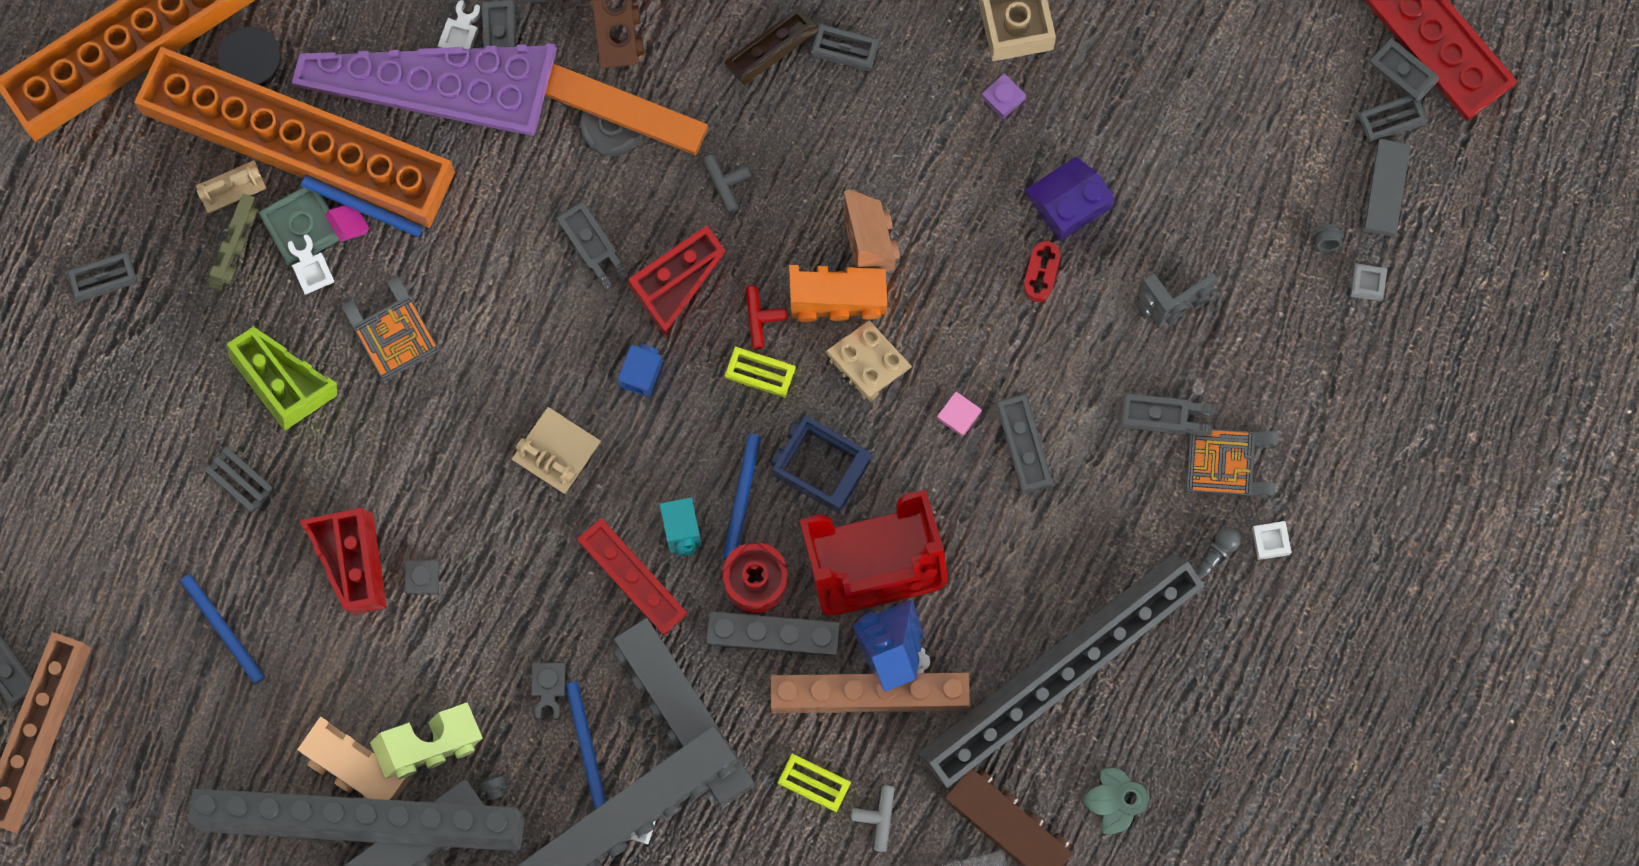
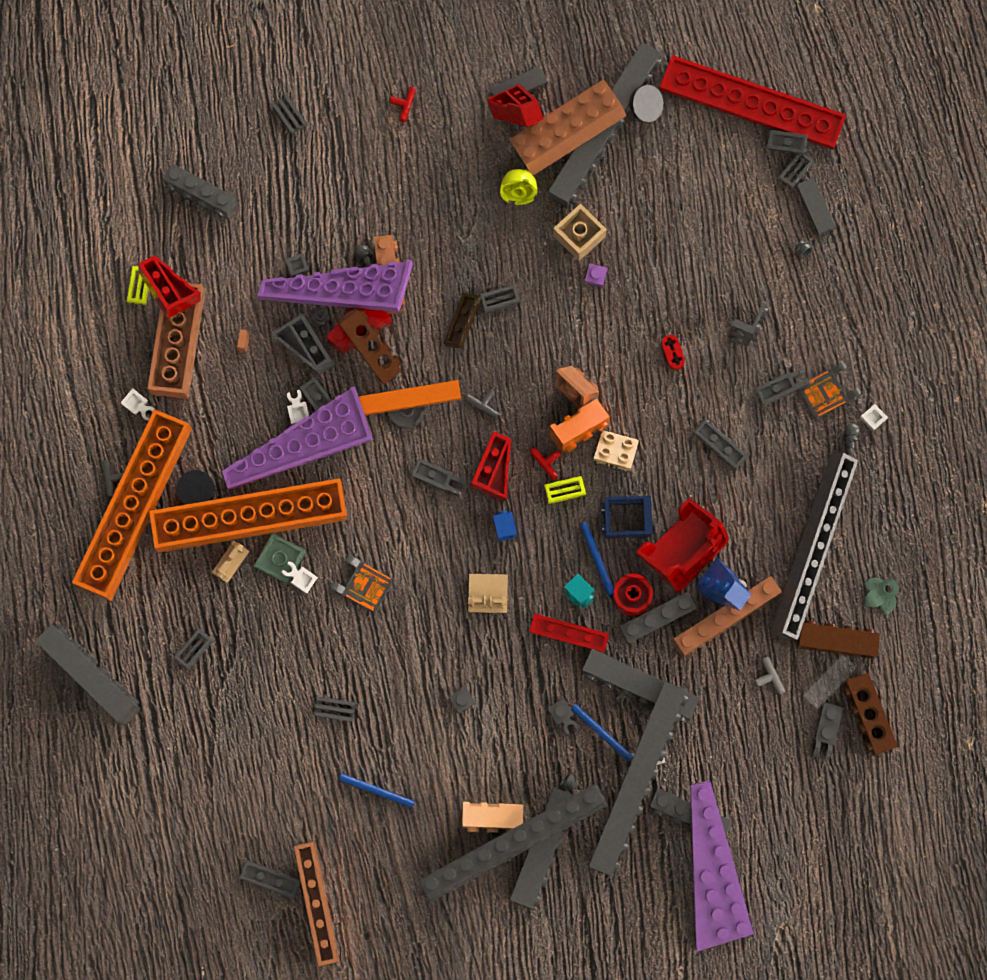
camera: 30 degrees left, 0 degrees up
(235, 243) = (252, 589): olive wing -> none
(278, 378) = (322, 644): lime wedge -> none
(346, 223) = (303, 542): dark pink tile -> none
(350, 556) = (420, 712): red wedge -> none
(362, 206) = (306, 529): blue bar -> none
(402, 751) = (514, 792): yellowish green arch -> none
(839, 795) = (727, 687): neon yellow tile -> none
(959, 414) = (678, 449): bright pink tile -> none
(1070, 198) = (663, 306): dark purple slope -> none
(1368, 282) = (837, 259): light grey tile -> none

